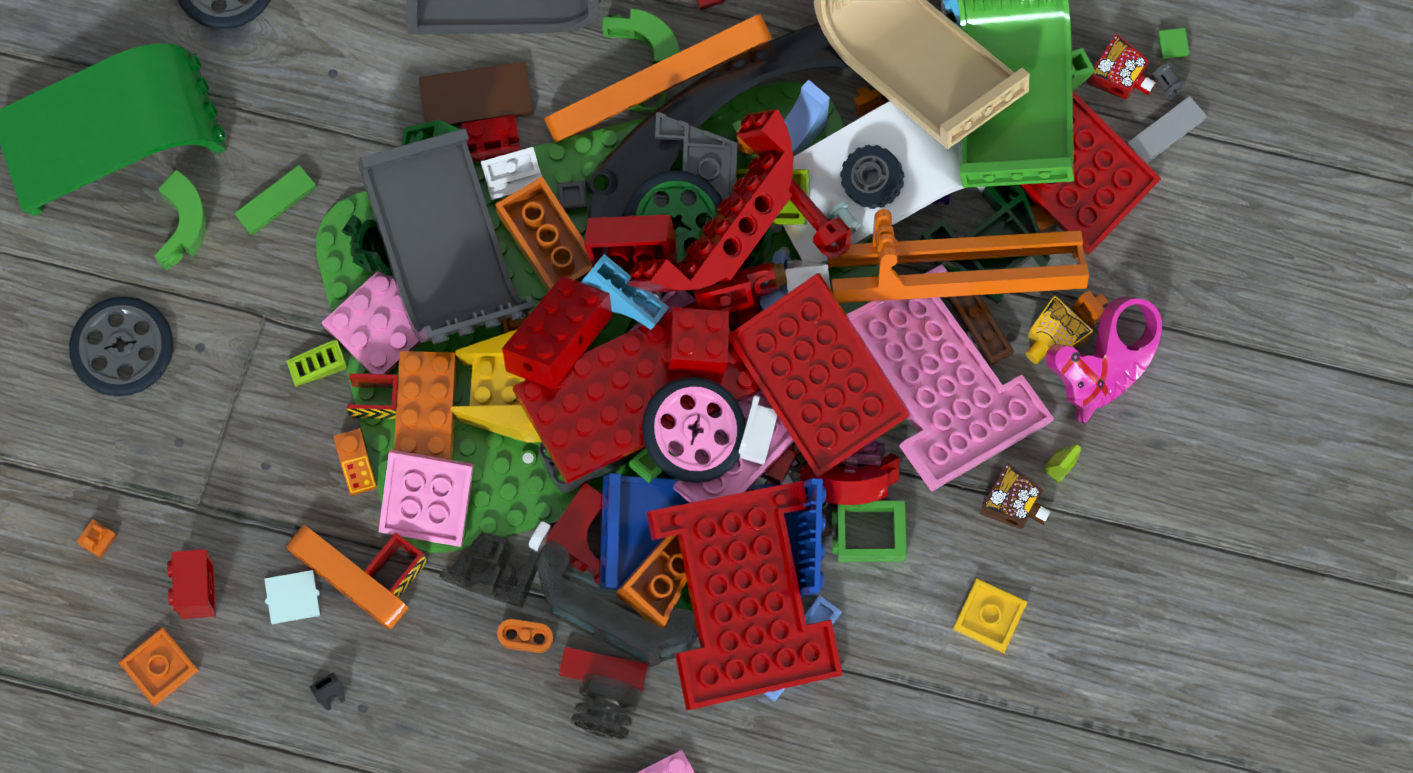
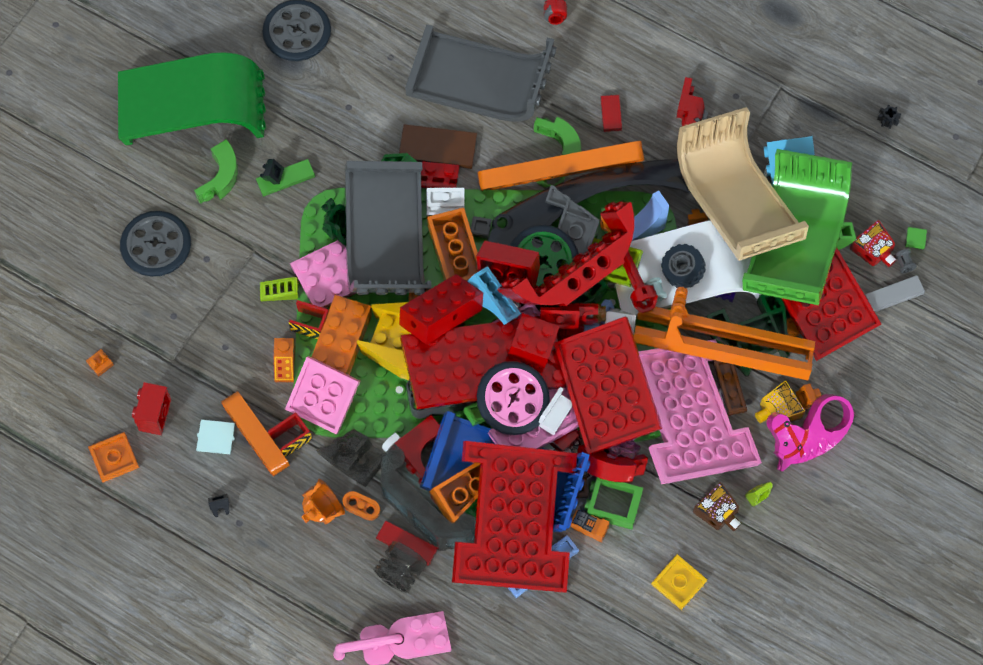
camera: 15 degrees right, 5 degrees down
(256, 198) = (273, 171): none -> black tile
(470, 650) = (321, 504): none -> orange helmet
(847, 573) = (589, 525): none -> orange leg

